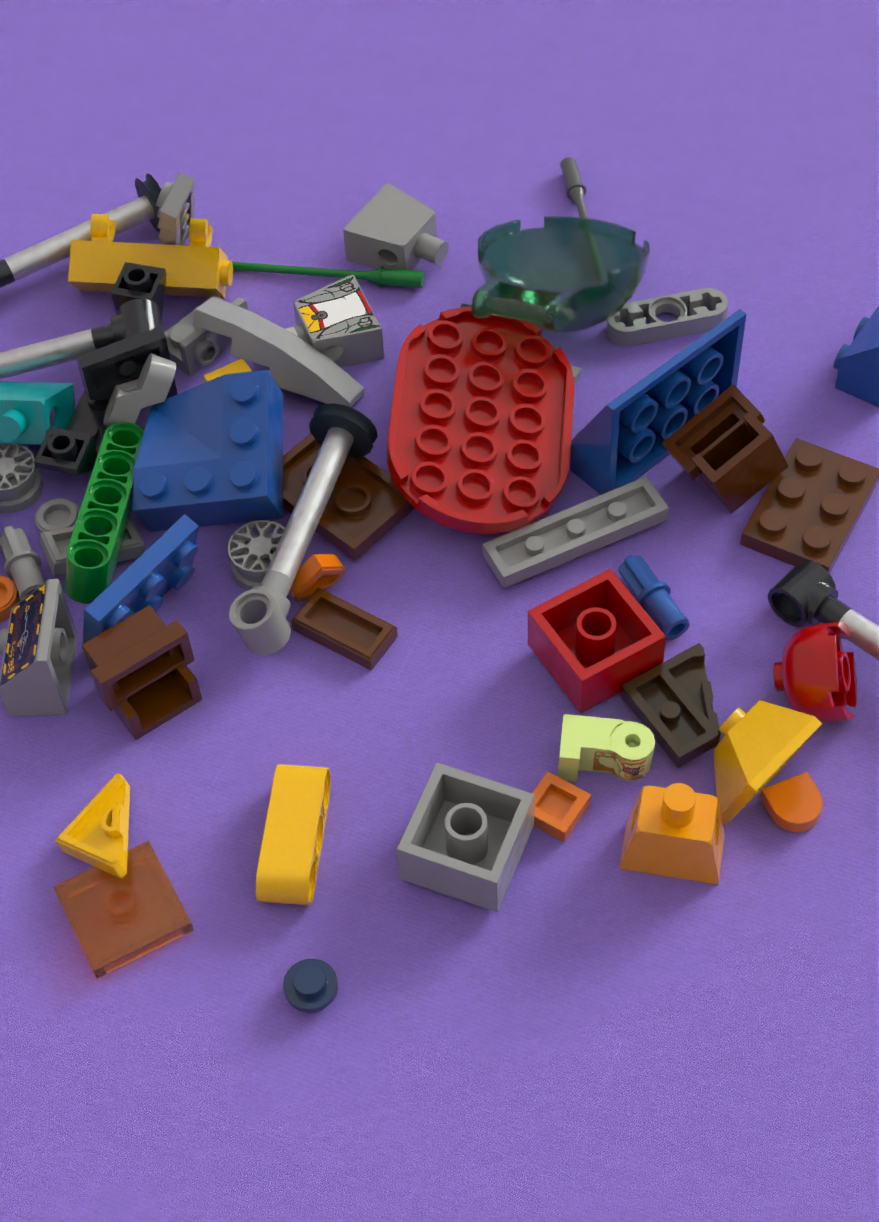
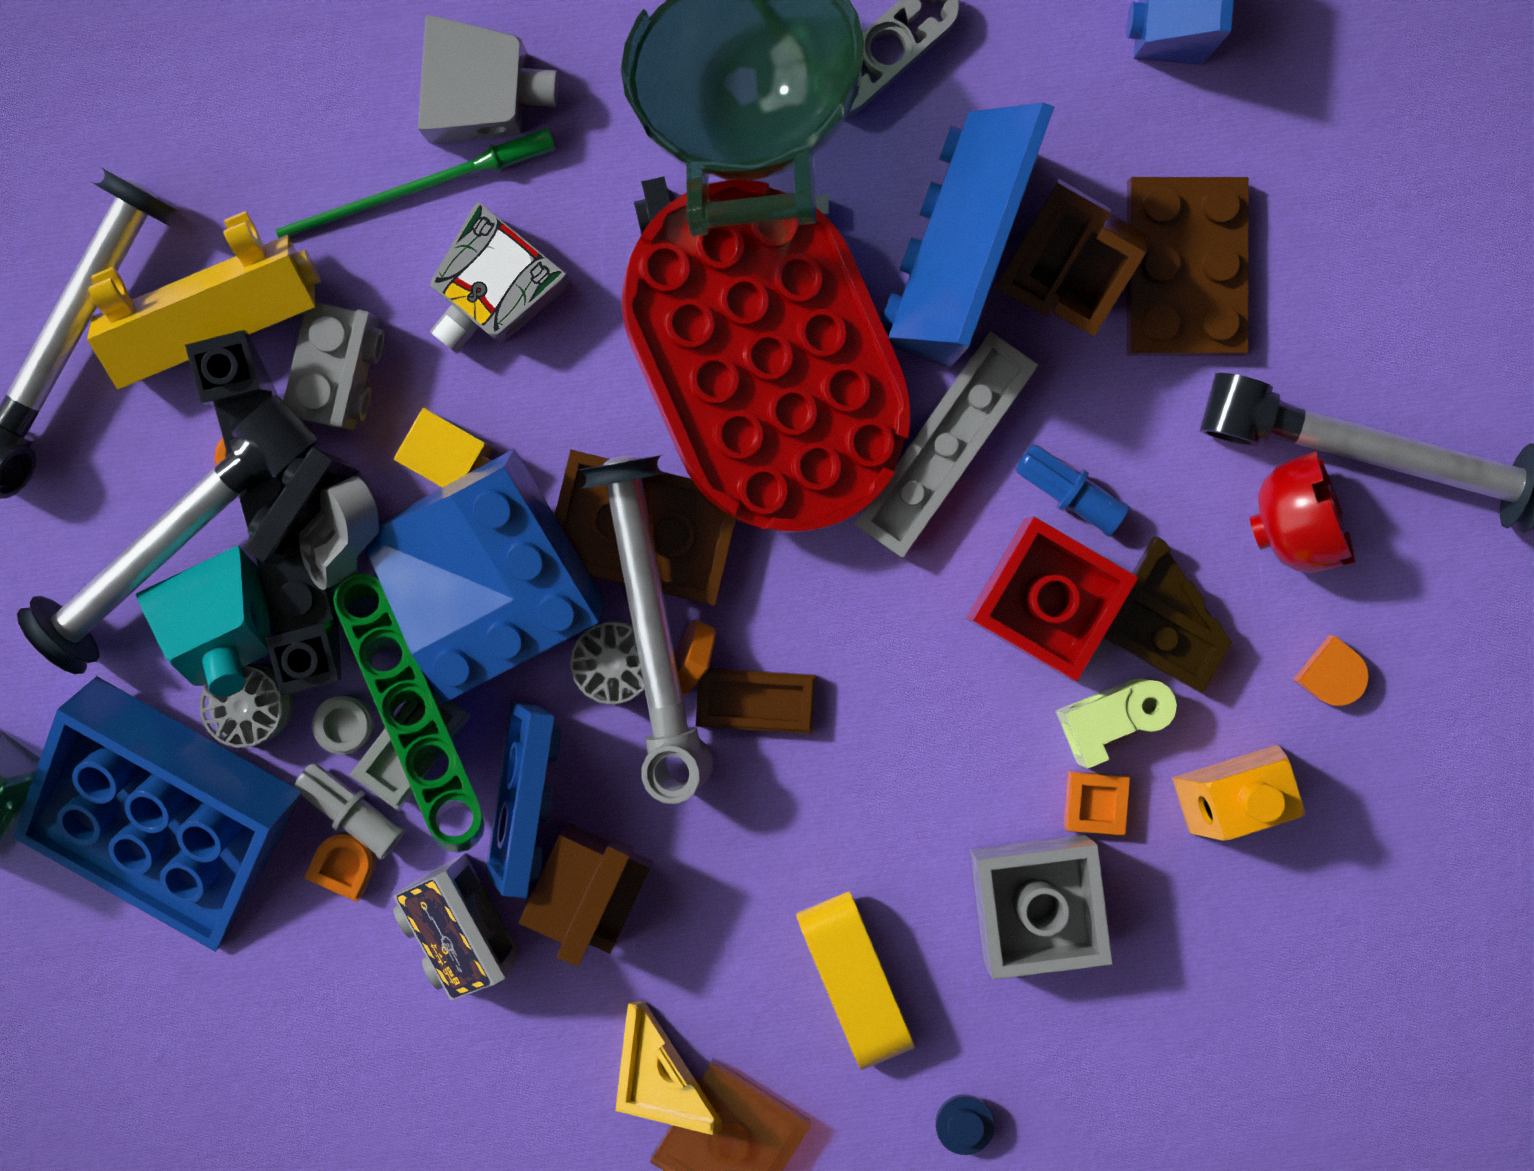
camera: 30 degrees left, 35 degrees up
(176, 208) = (216, 257): light grey plate -> none
(291, 360) = (459, 371): light grey slope -> none
(755, 751) = (1293, 667): yellow slope -> none

